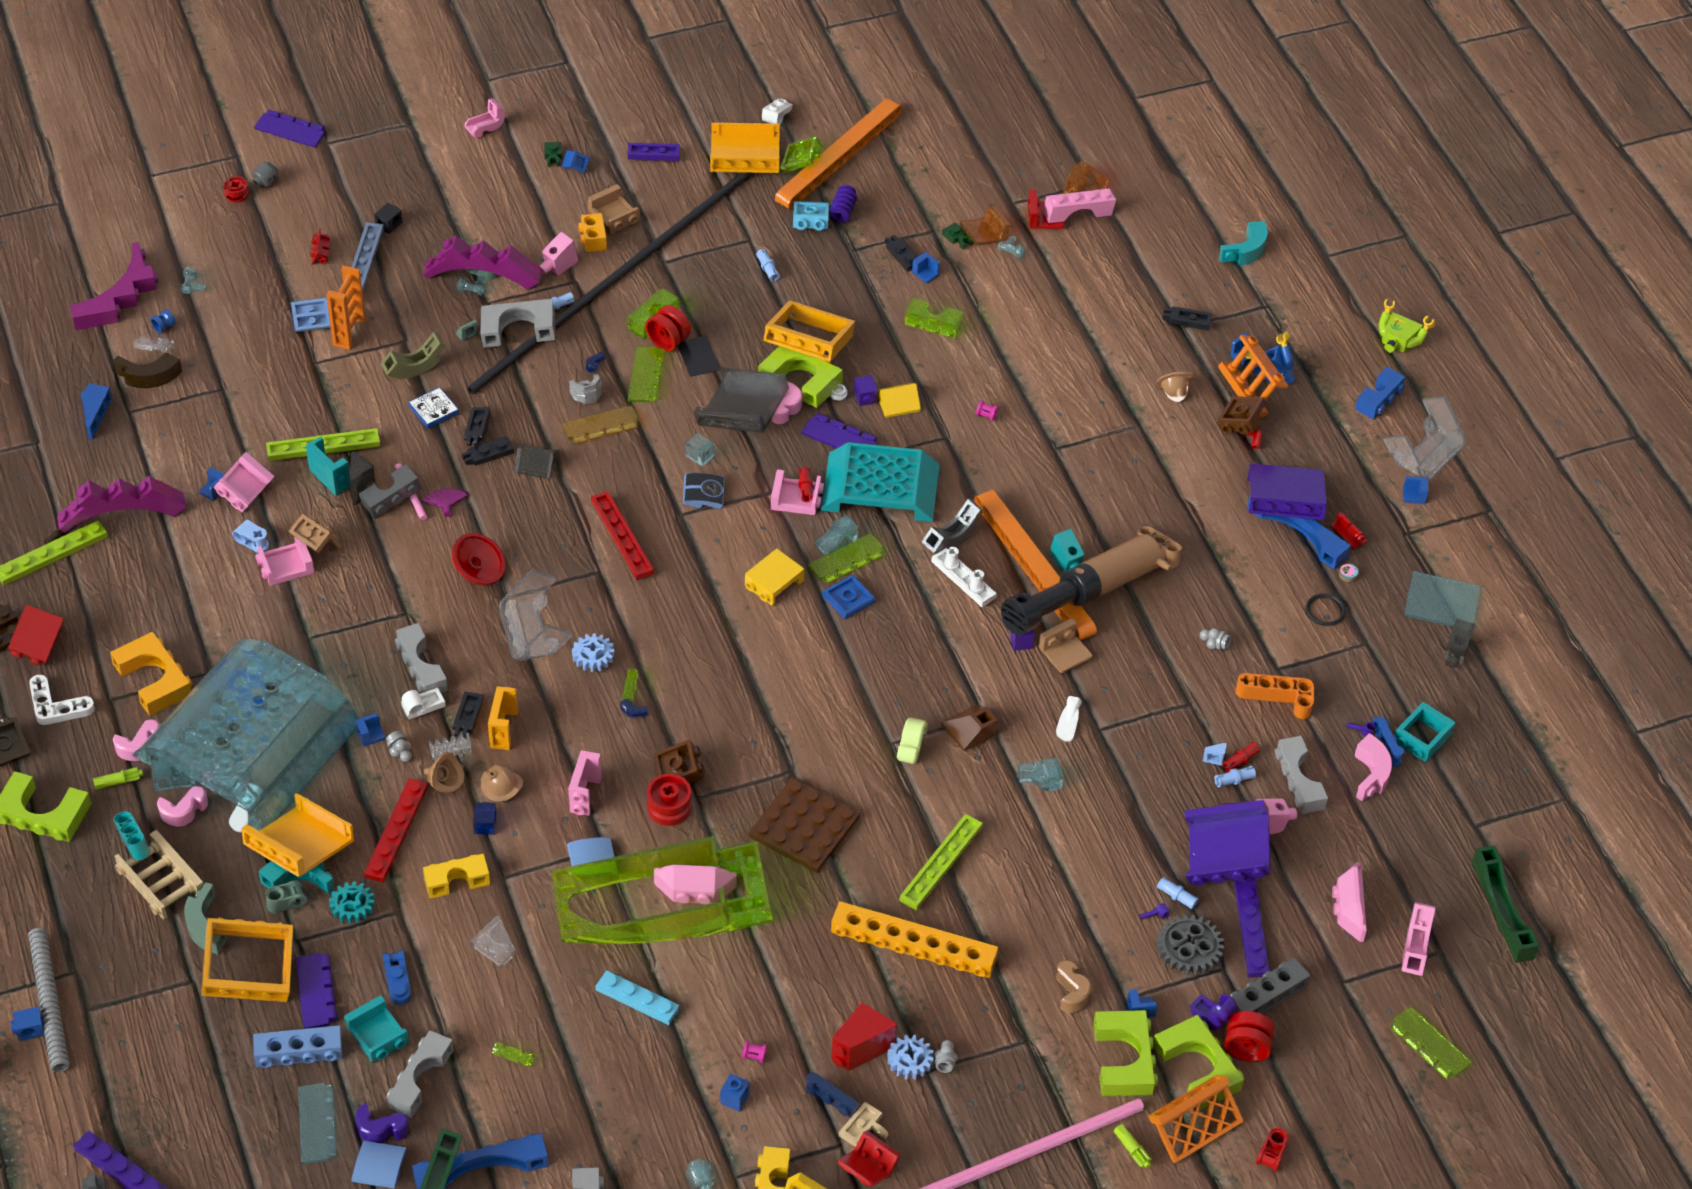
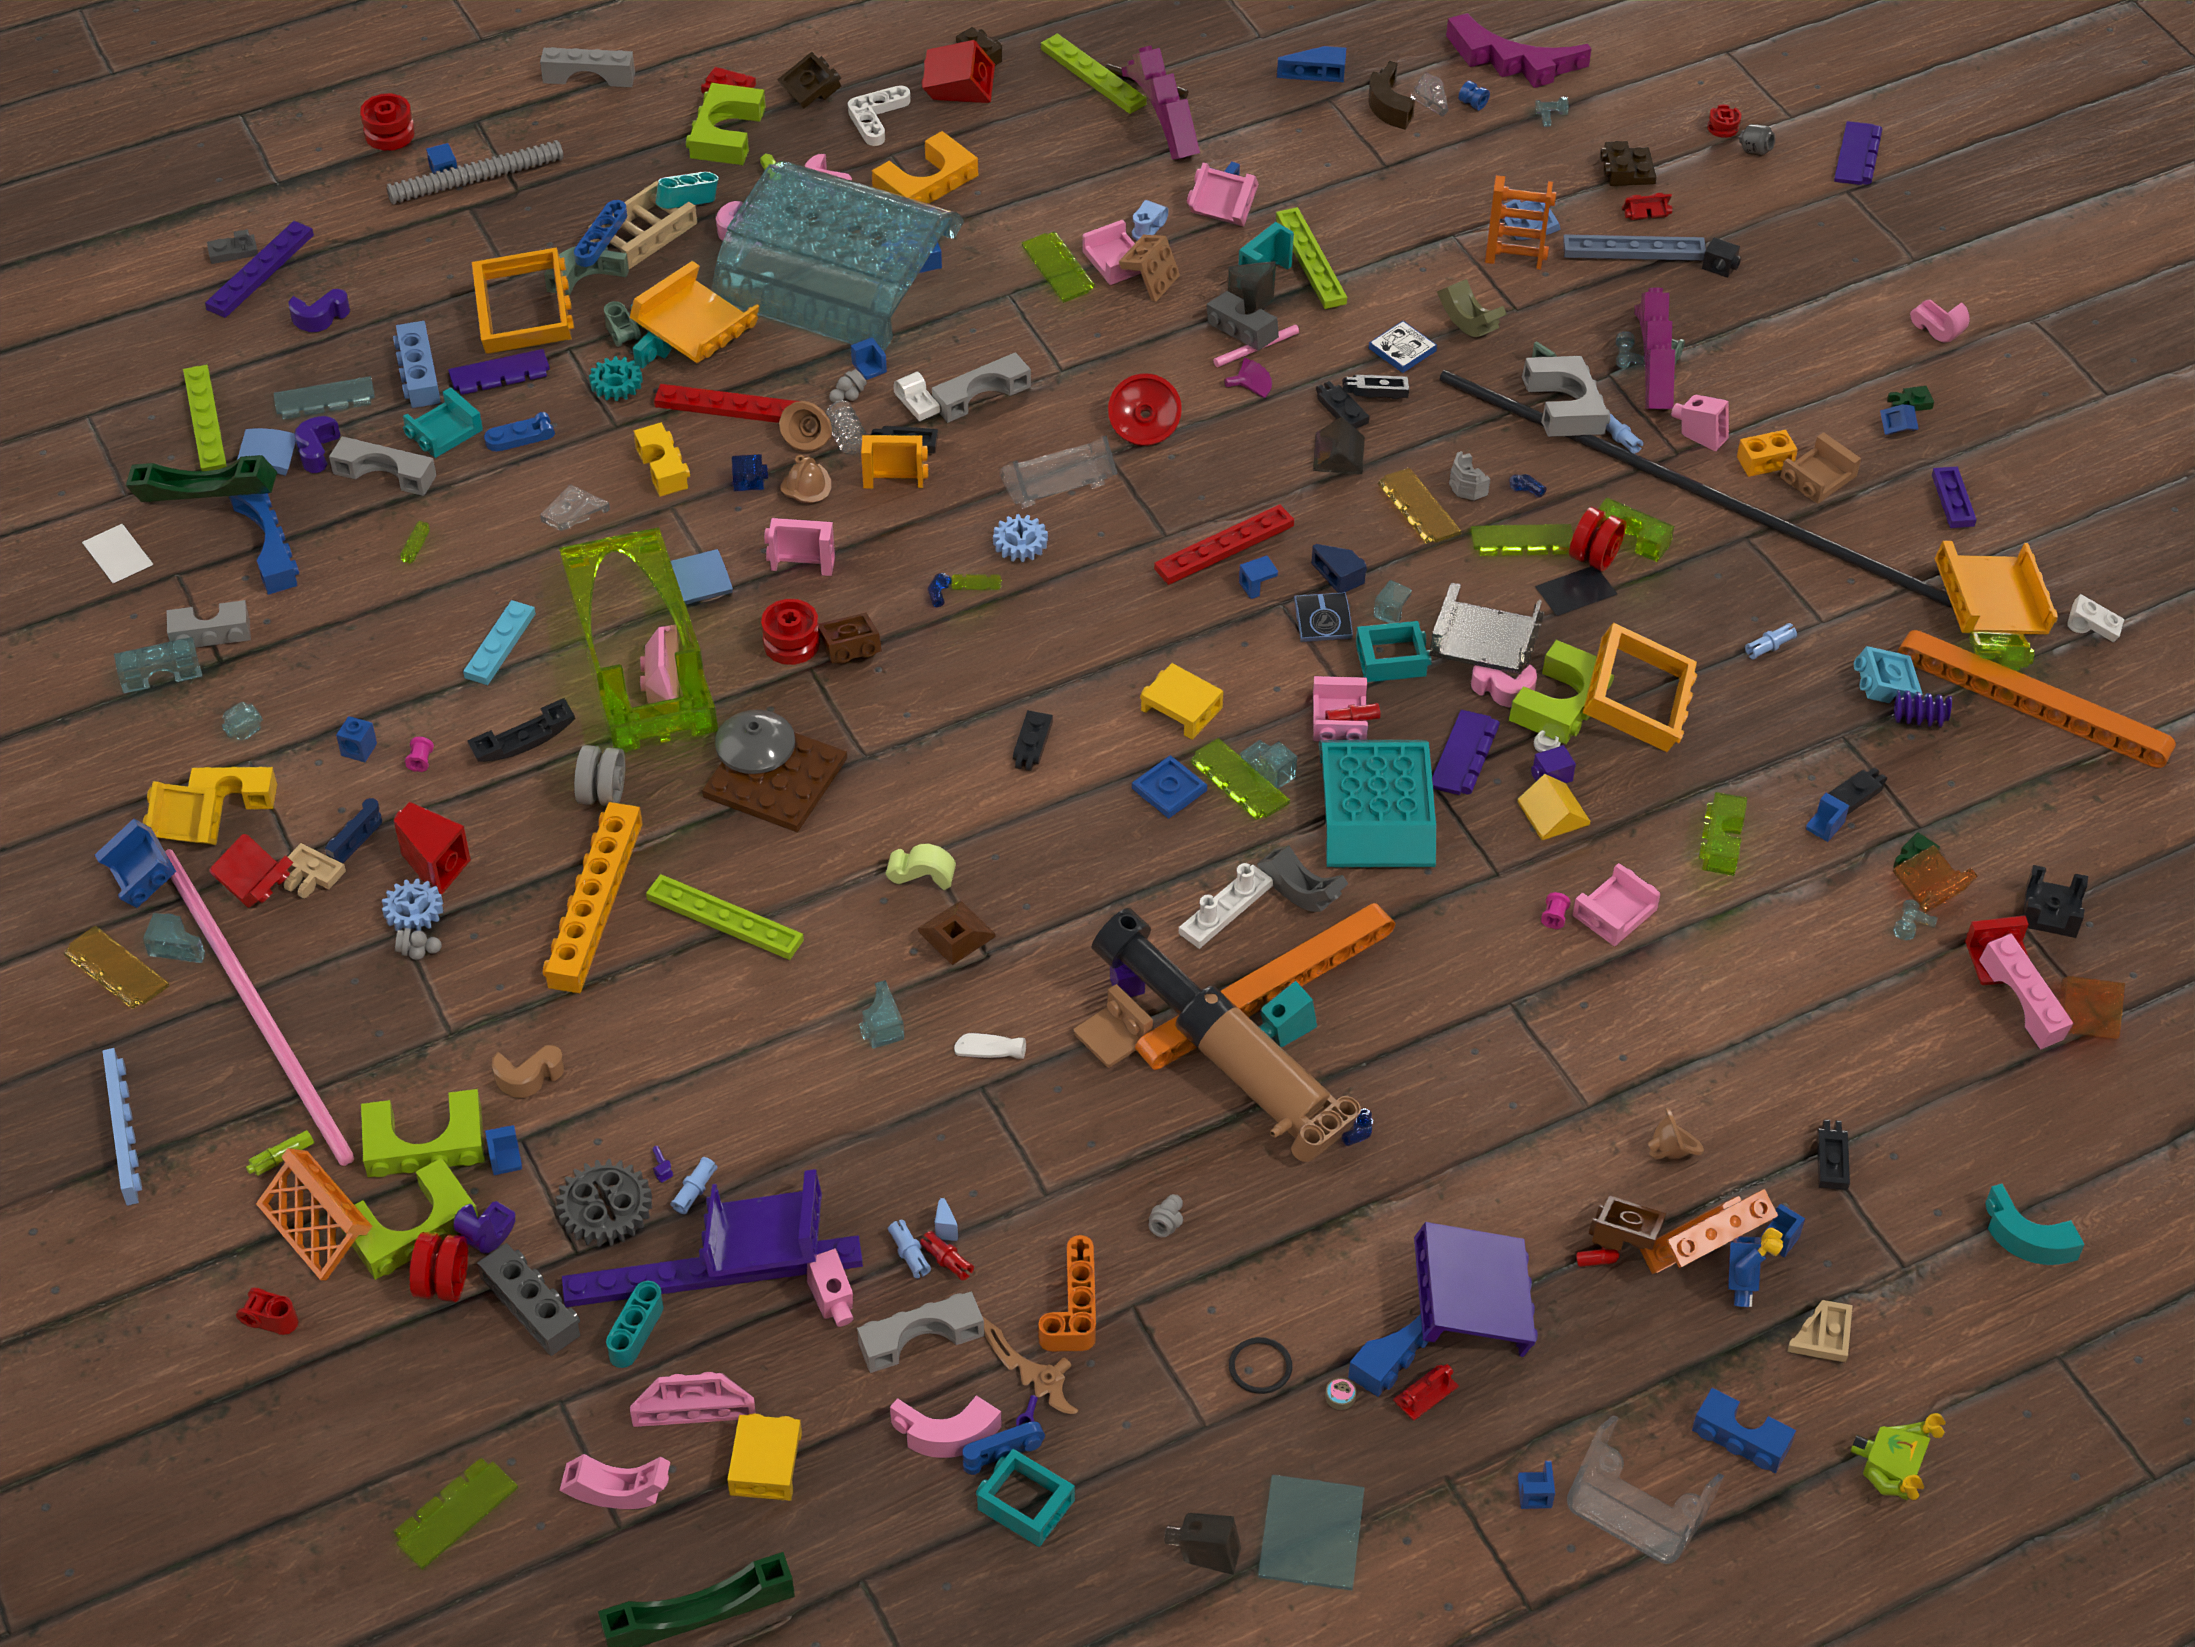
camera: 85 degrees right, 0 degrees up
(176, 899) = (595, 231): none -> blue beam
(211, 1120) = (321, 313): none -> dark purple animal
(268, 250) = (1627, 165): none -> dark brown plate
(290, 602) = (1058, 266): none -> clear neon green windscreen
(660, 473) = (1339, 567): none -> dark blue slope
(660, 519) = (1254, 573): none -> blue panel
(742, 980) = (525, 736): none -> black slope
(755, 470) = (1394, 667): none -> teal window
(782, 836) = (755, 741): none -> dark grey dish
(794, 669) = (1032, 739): none -> black hinge
(806, 924) = (599, 775): none -> light grey wheel
(984, 380) = (1617, 905): none -> bright pink panel
(1006, 183) = (2054, 906): none -> black panel
(1299, 933) = (635, 1336): none -> teal beam
(1313, 346) = (1825, 1332): none -> tan wing
(1332, 716) = (1046, 1378): none -> medium nougat piece
(1394, 862) = (764, 1457): none -> yellow panel

